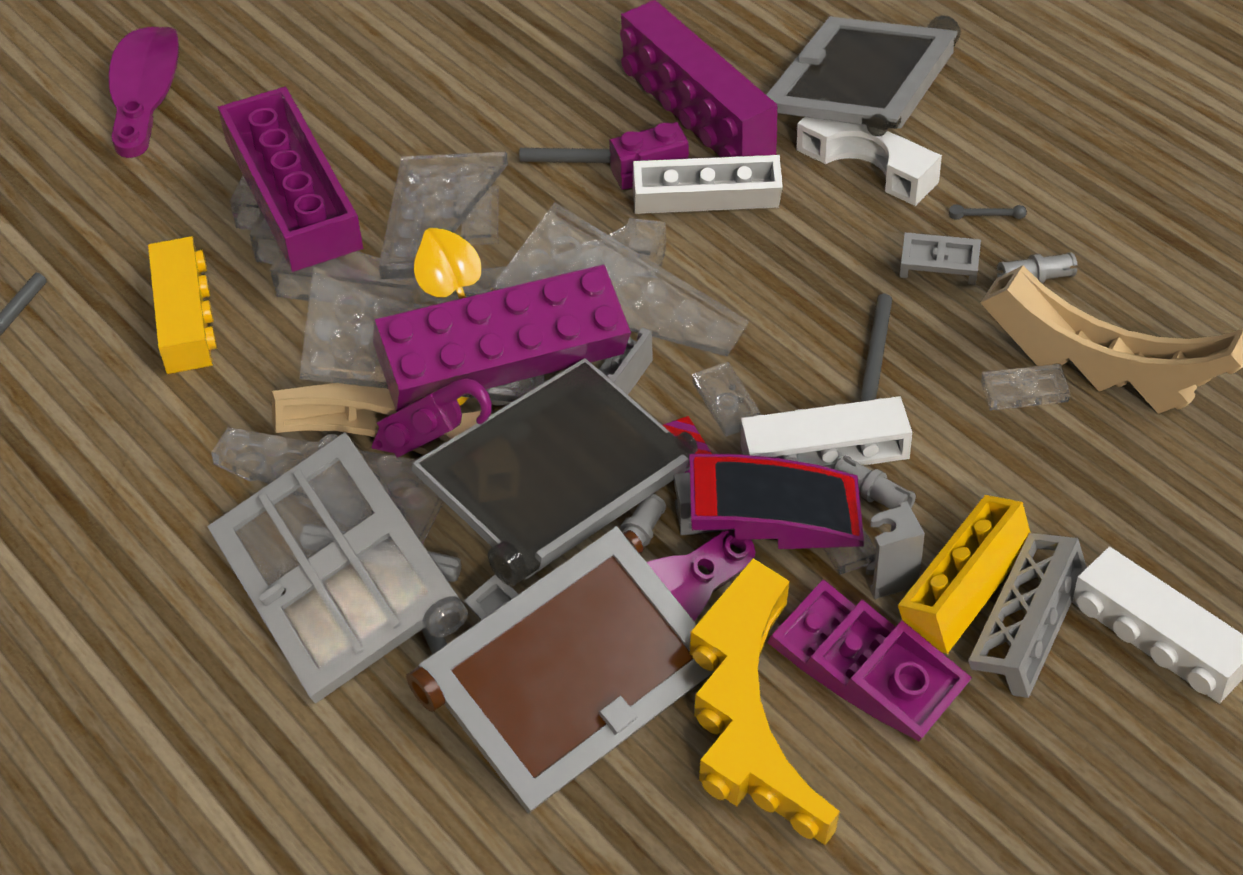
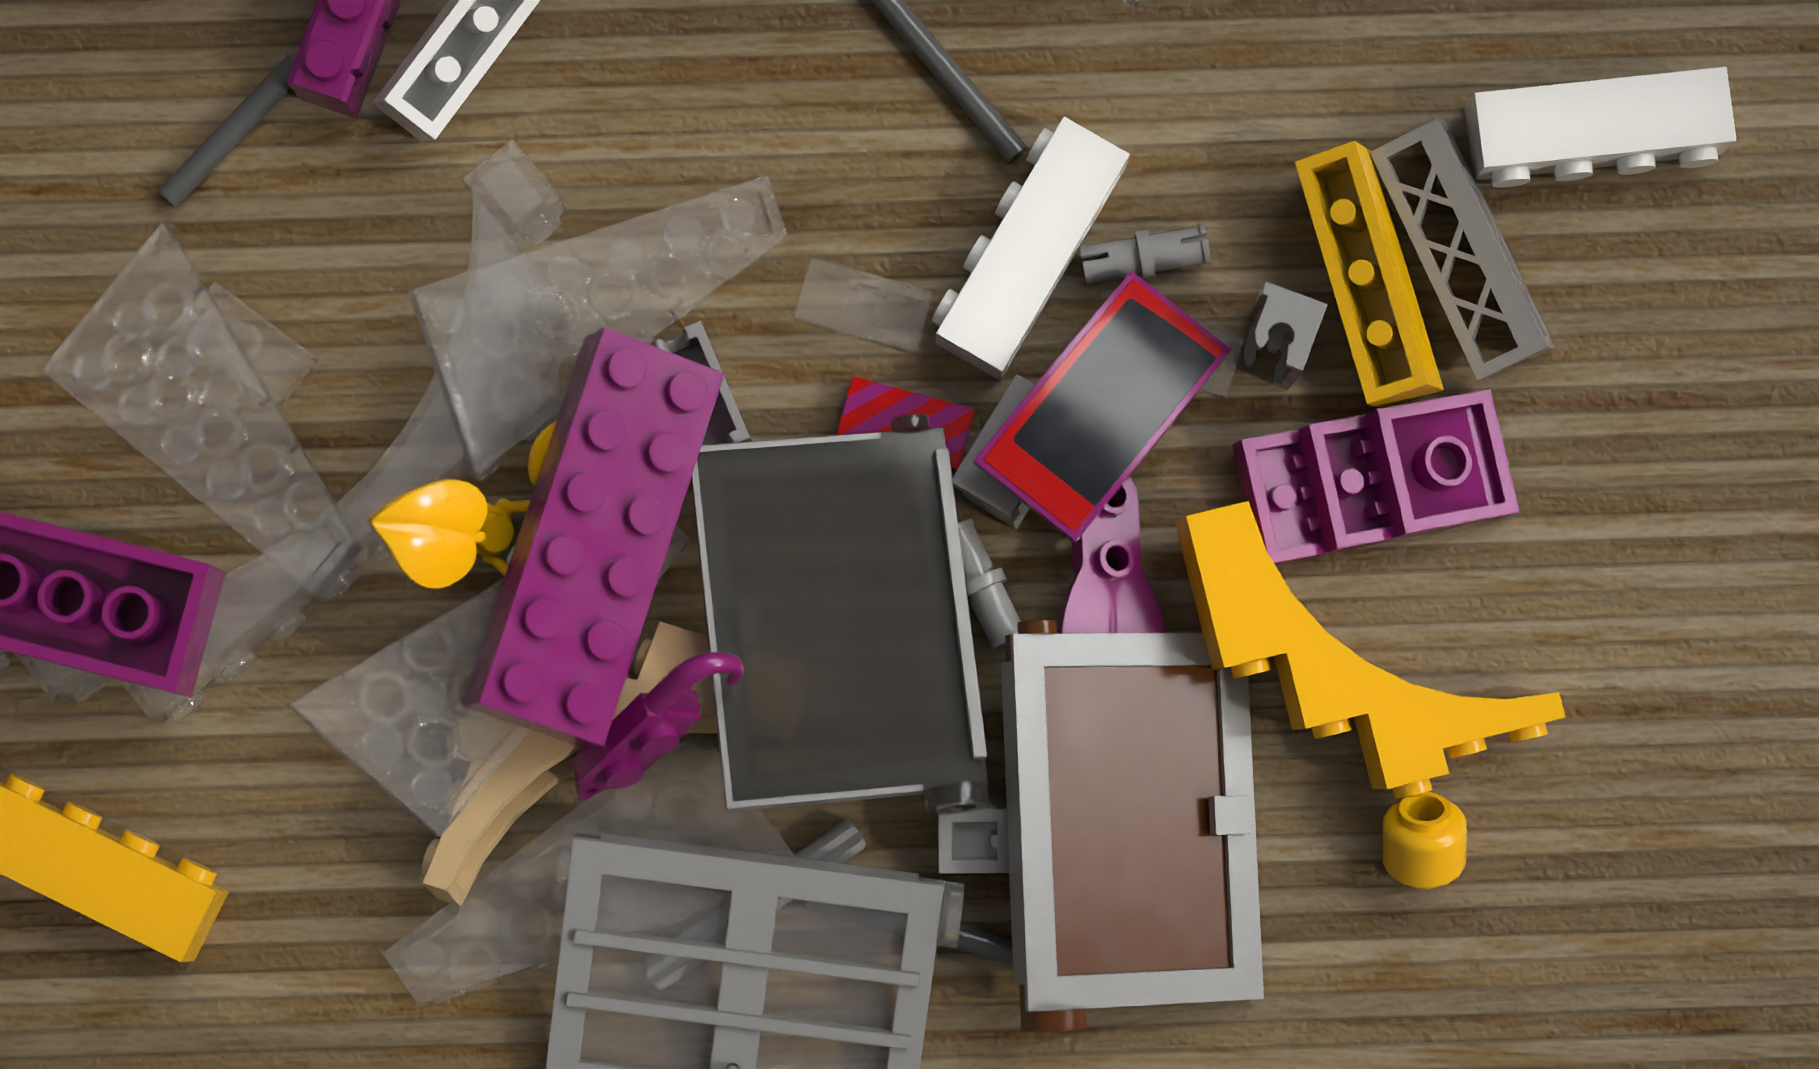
camera: 55 degrees left, 35 degrees up
(691, 814) = (1424, 841): none -> yellow head

